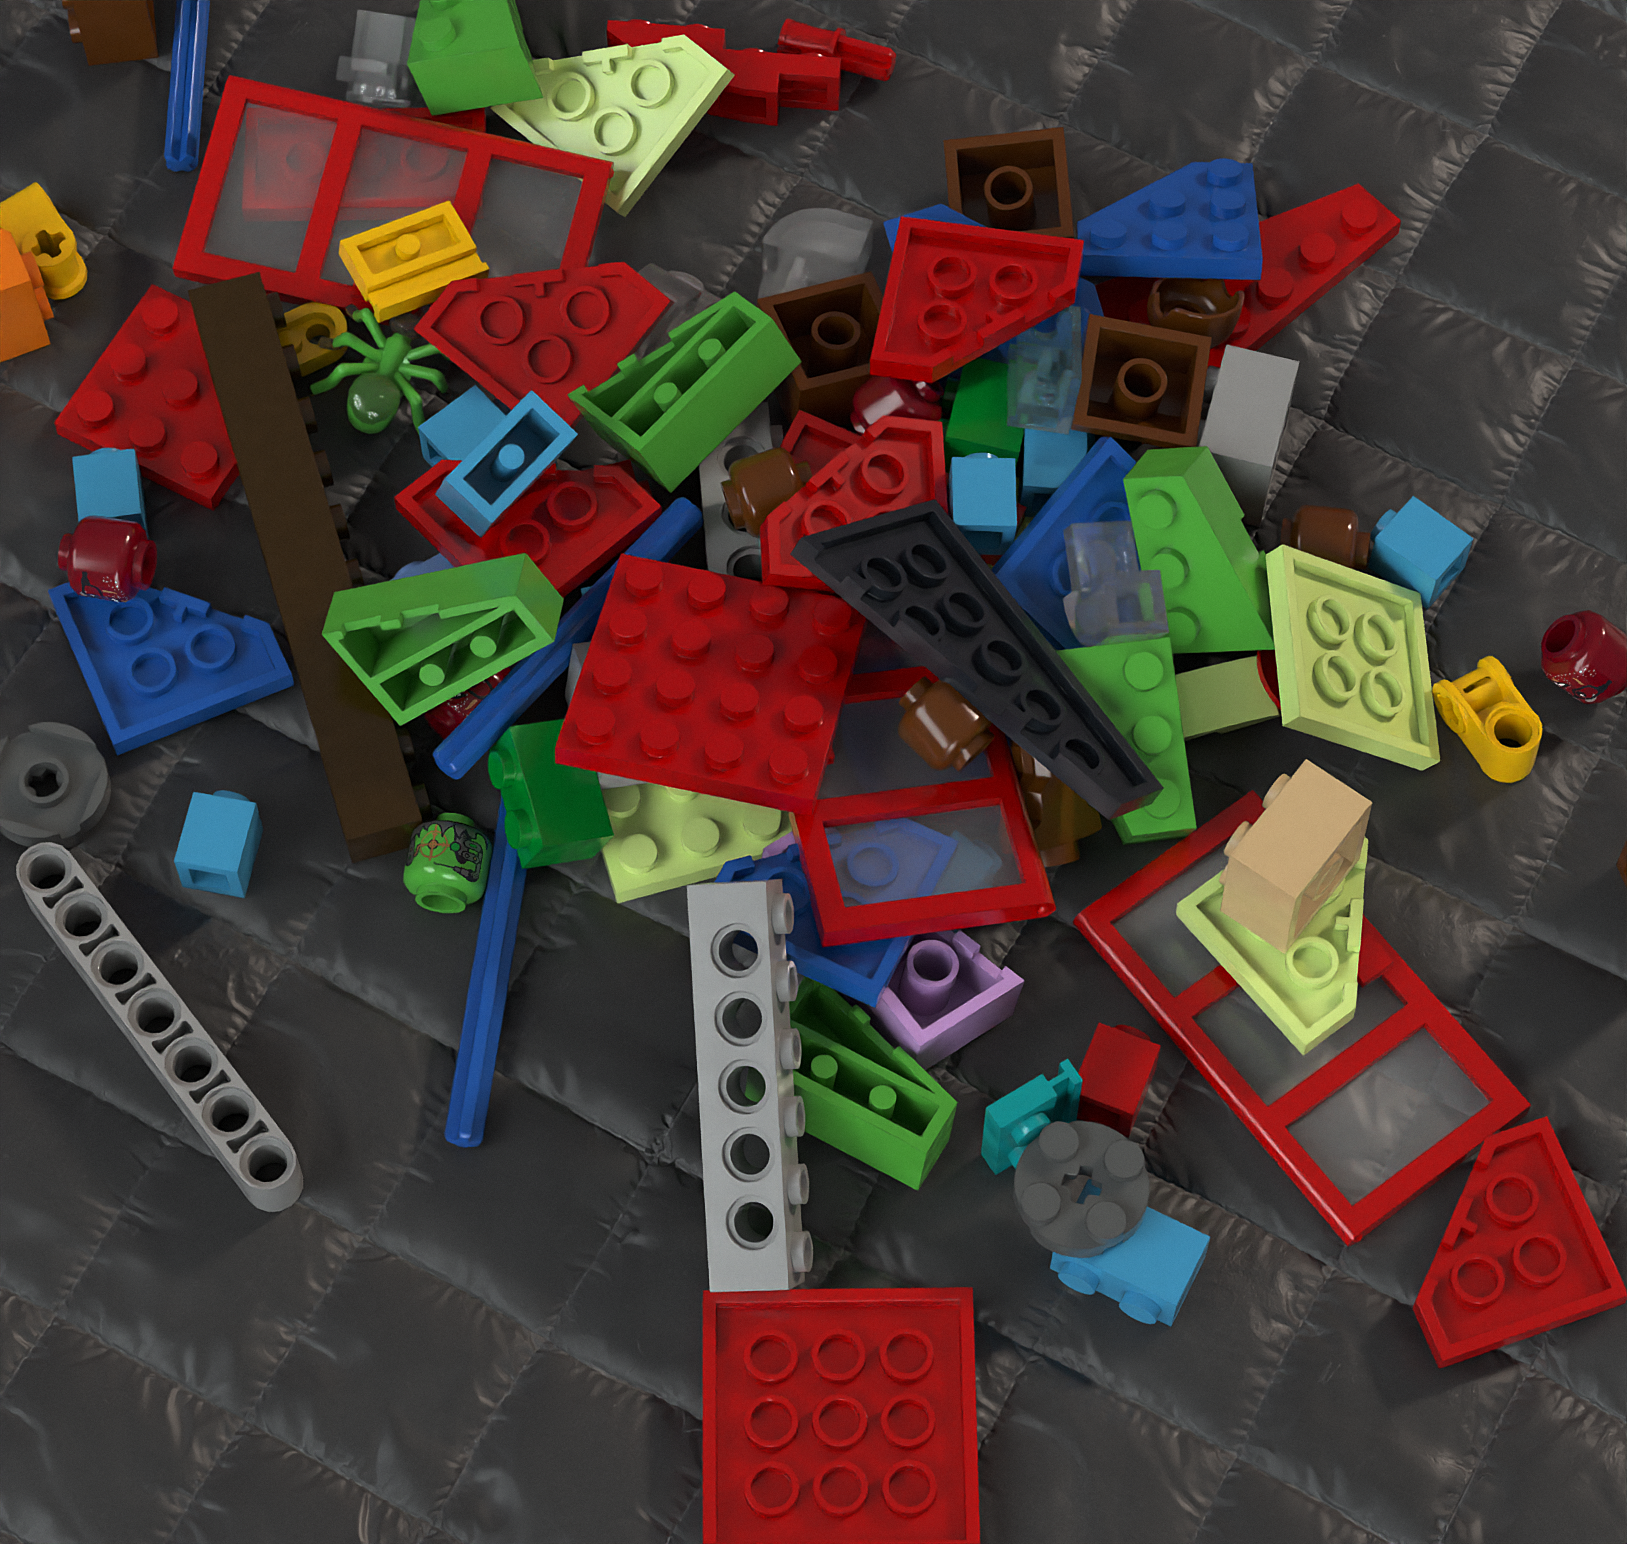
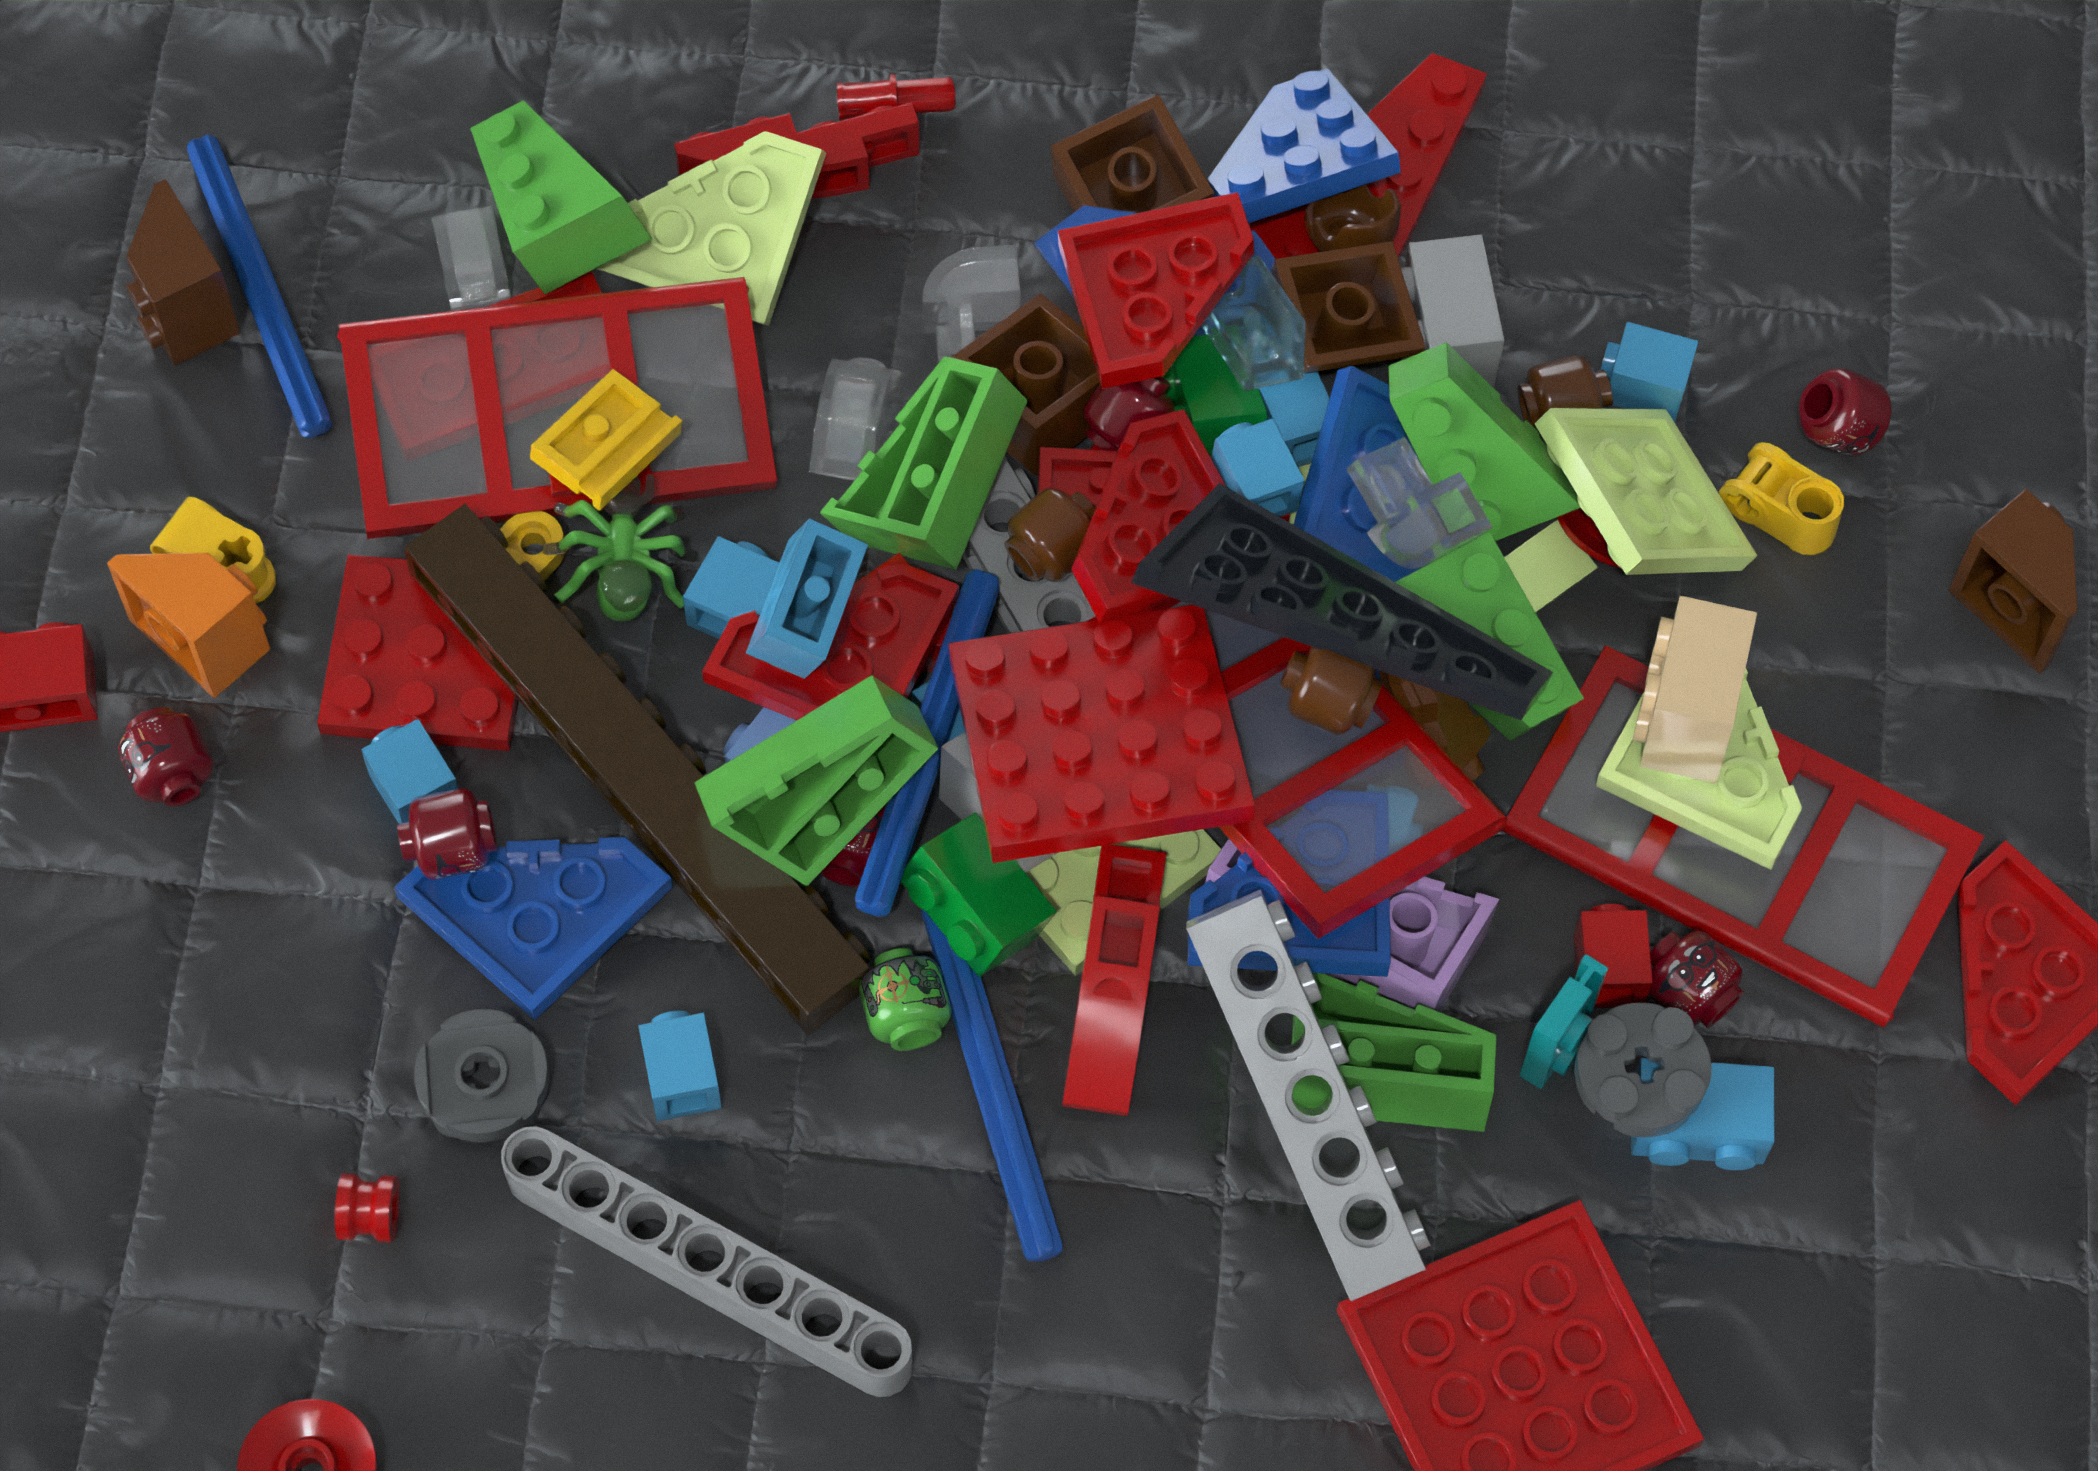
camera: 25 degrees left, 0 degrees up
(545, 330) = (766, 461): red plate -> none
(637, 917) = (1114, 980): none -> red slope
(1180, 1128) = (1695, 977): none -> dark red head

